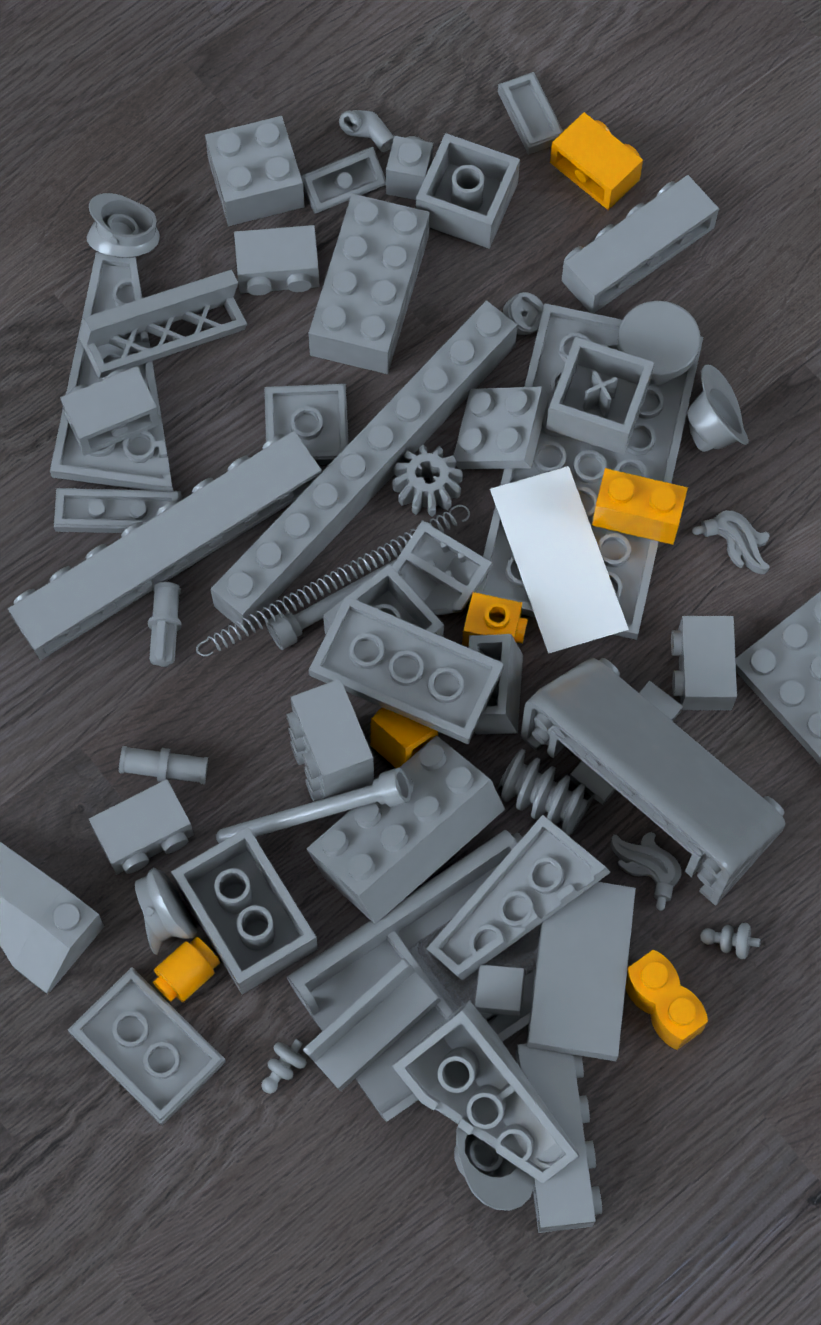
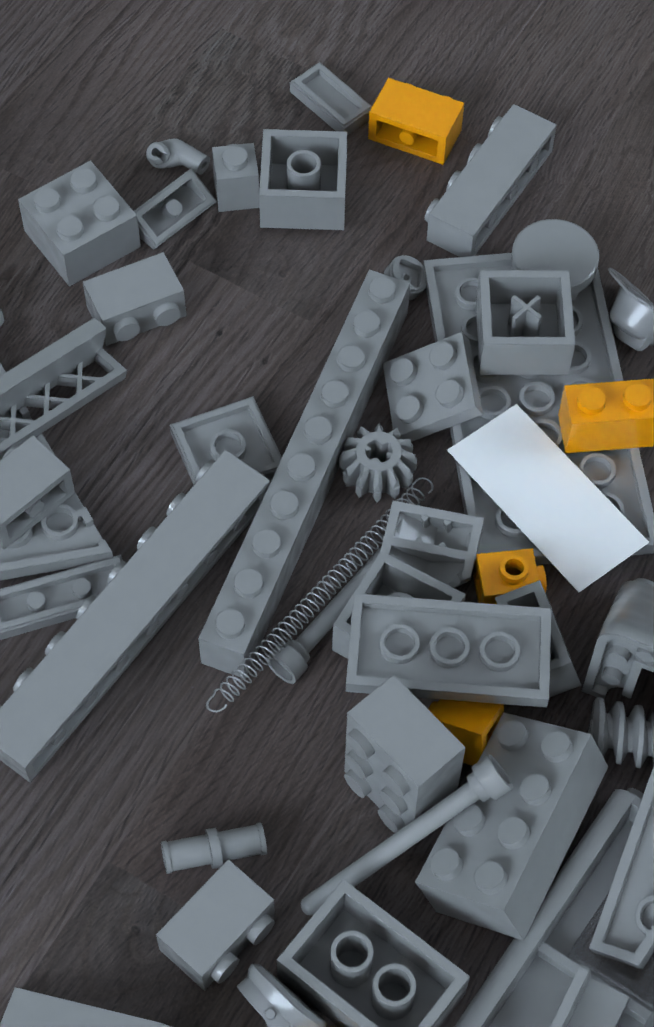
camera: 20 degrees left, 10 degrees down
(164, 623) = (156, 696): light grey axle -> none
(369, 283) = (240, 294): light grey brick -> none

